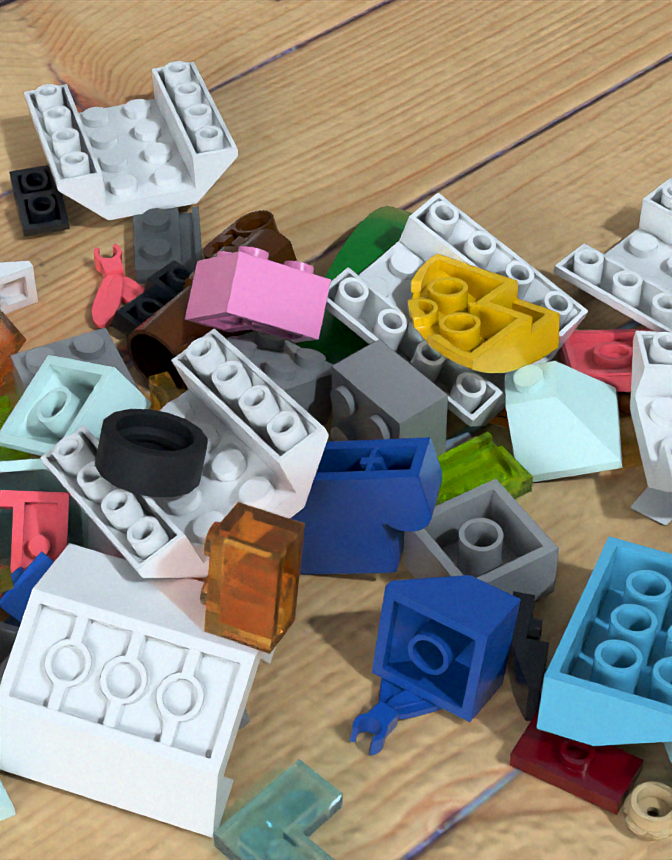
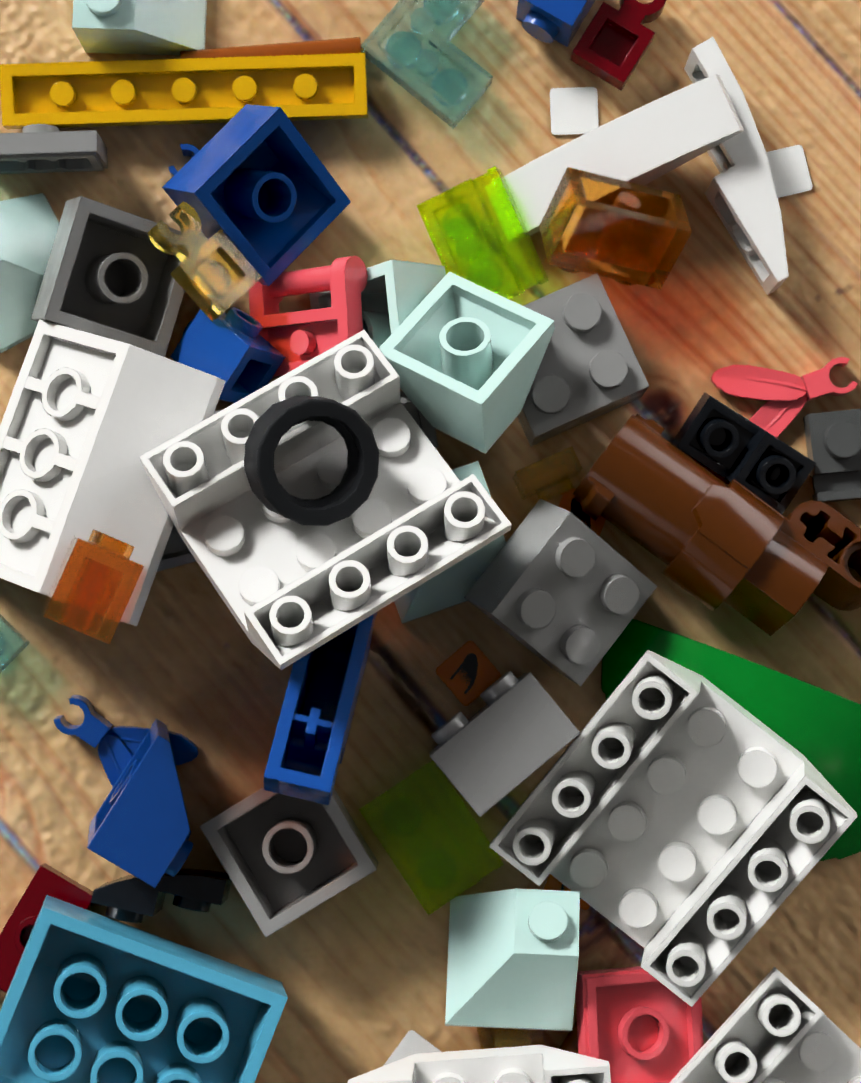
camera: 90 degrees right, 40 degrees up
(257, 294) = (623, 570): bright pink brick -> none
(478, 317) = (634, 853): yellow brick -> none

